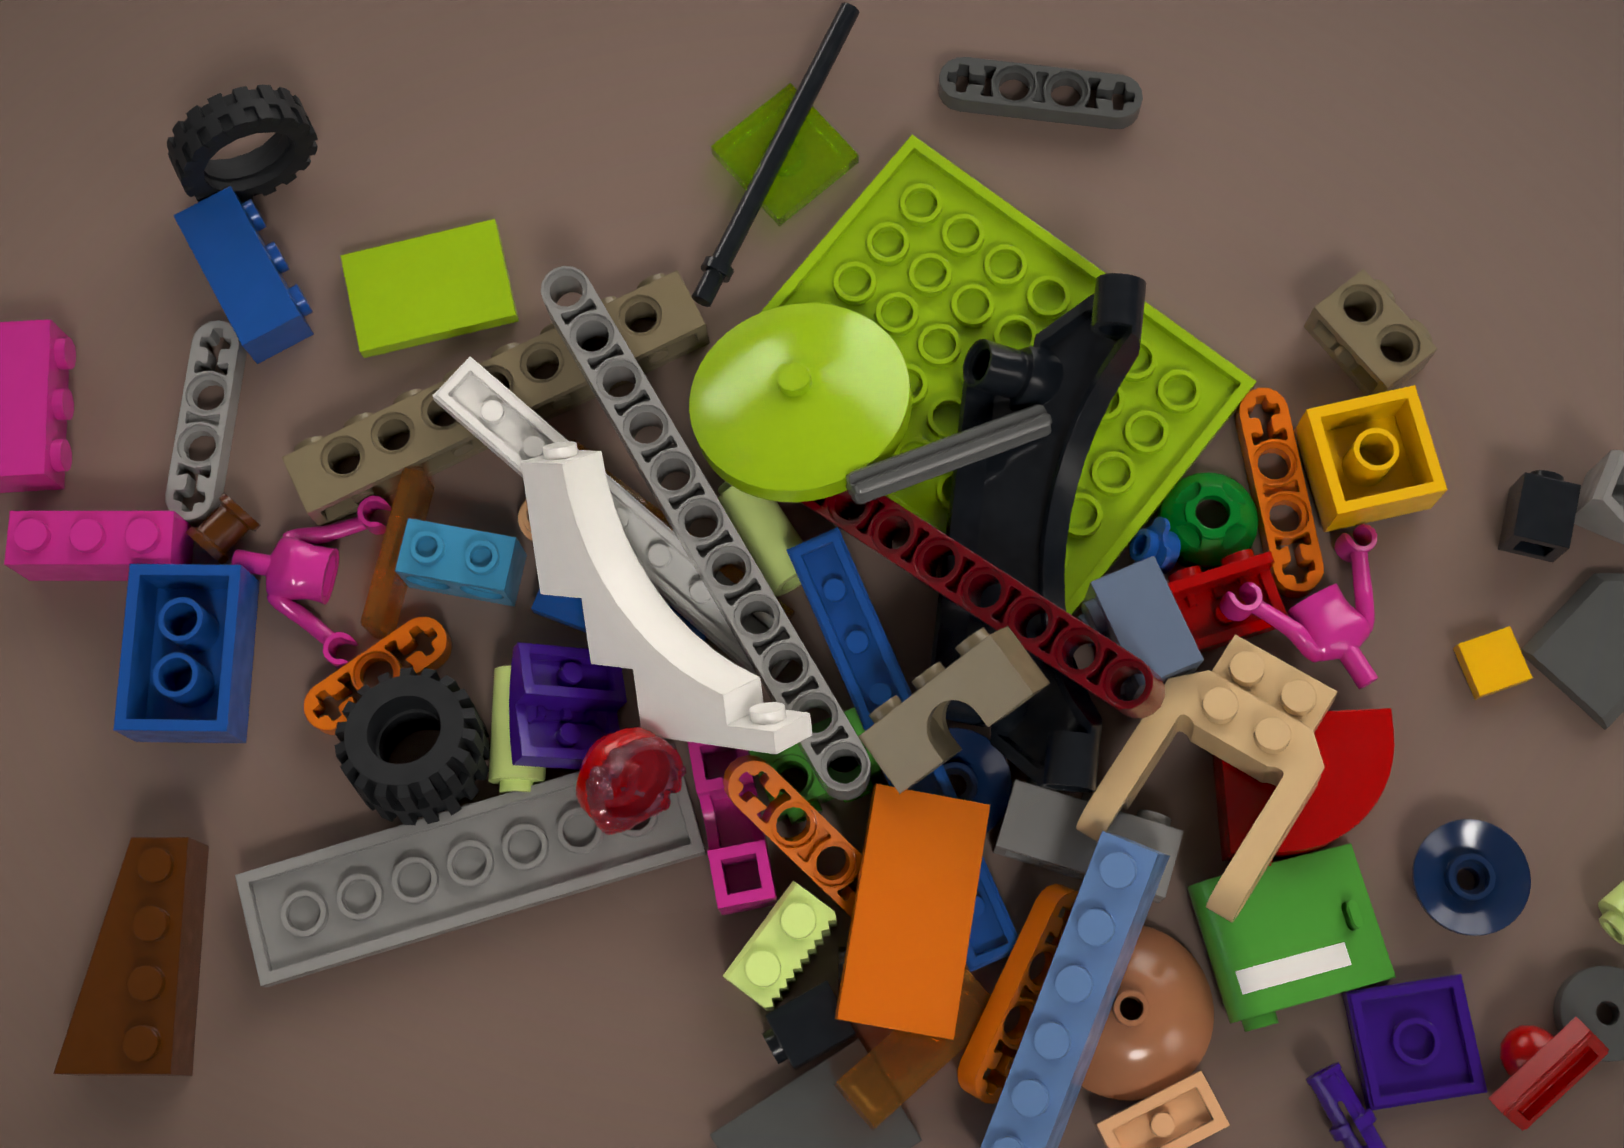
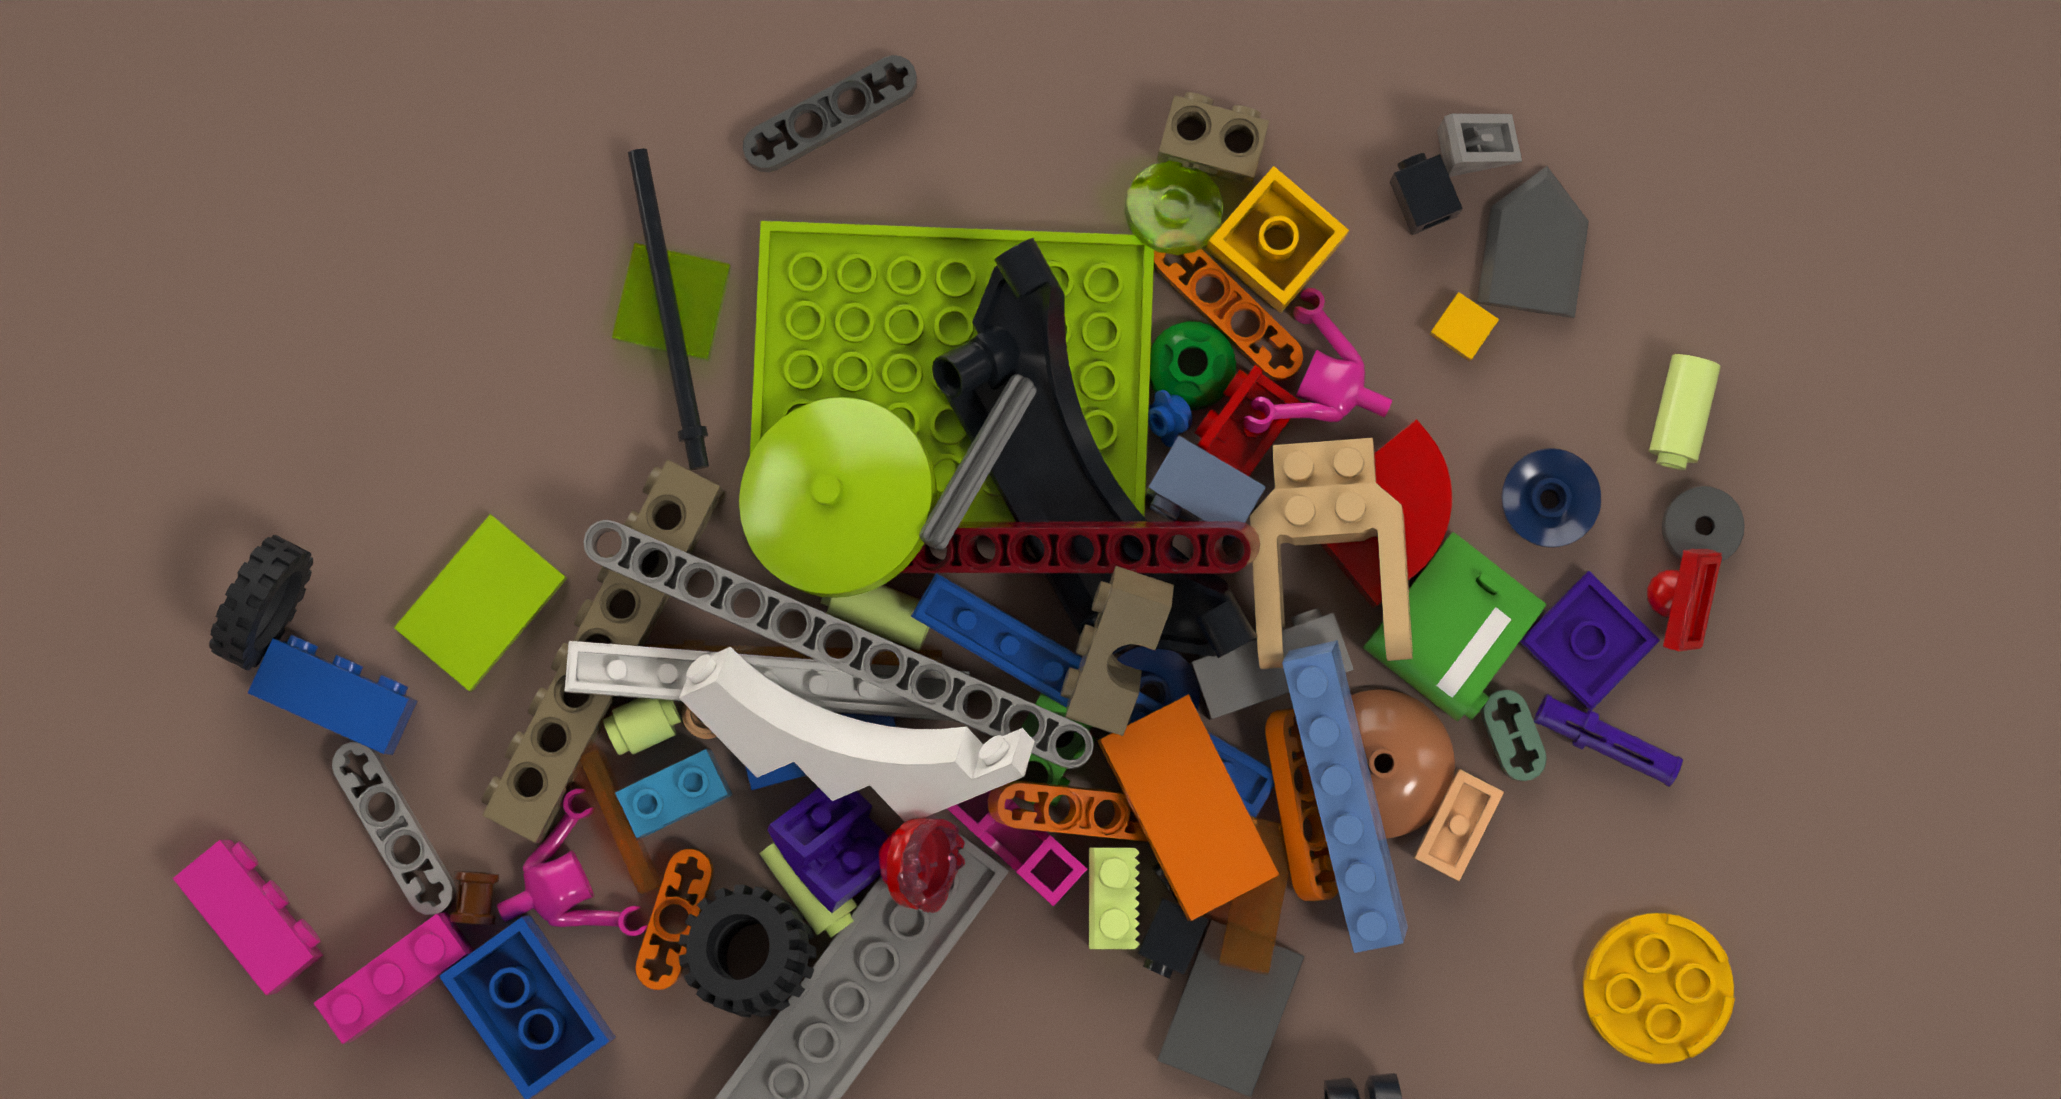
camera: 40 degrees left, 10 degrees up
(481, 483) = (641, 724): none -> yellowish green brick
(1290, 369) = (1173, 208): none -> clear neon green tile
(1290, 1082) = (1524, 730): none -> sand green beam

